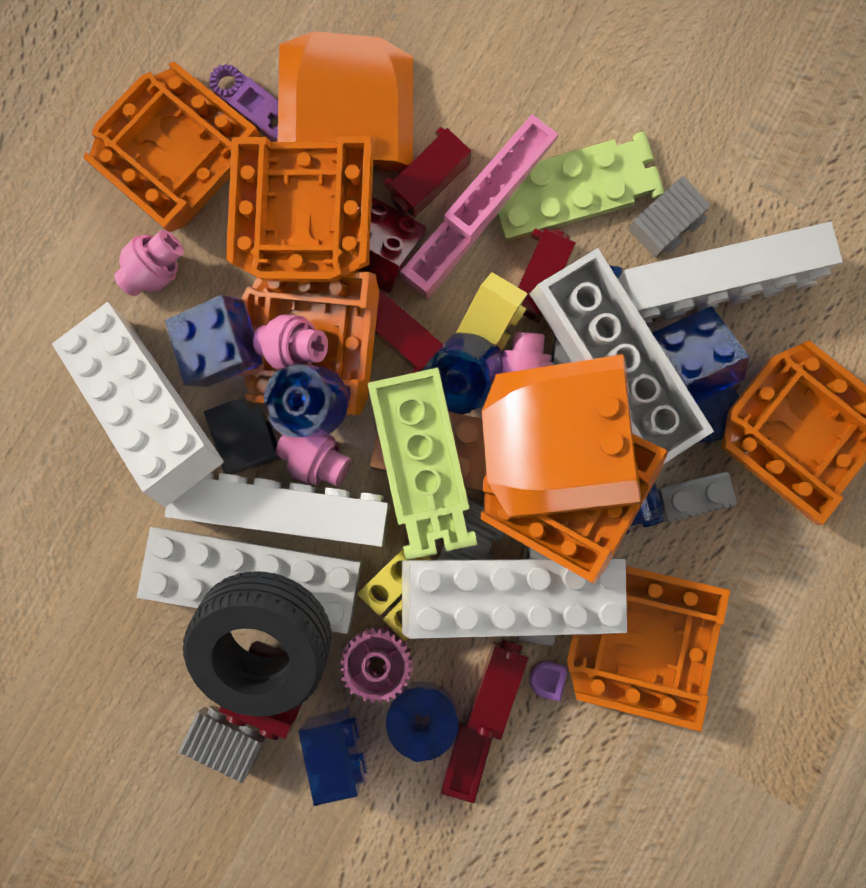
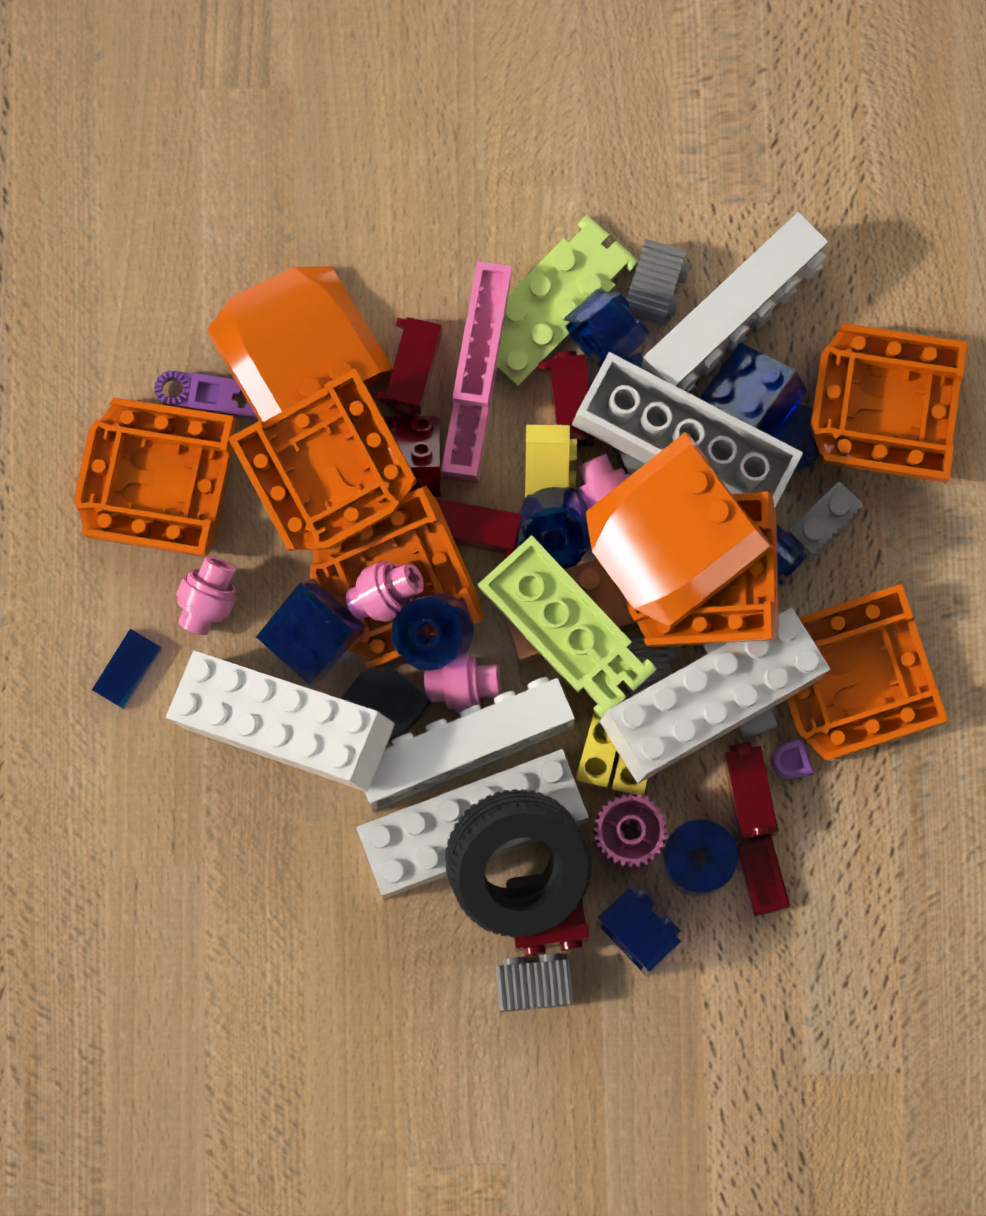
camera: 30 degrees left, 5 degrees down
(56, 287) = (126, 669): none -> clear blue tile
(609, 225) = (605, 326): none -> clear blue brick

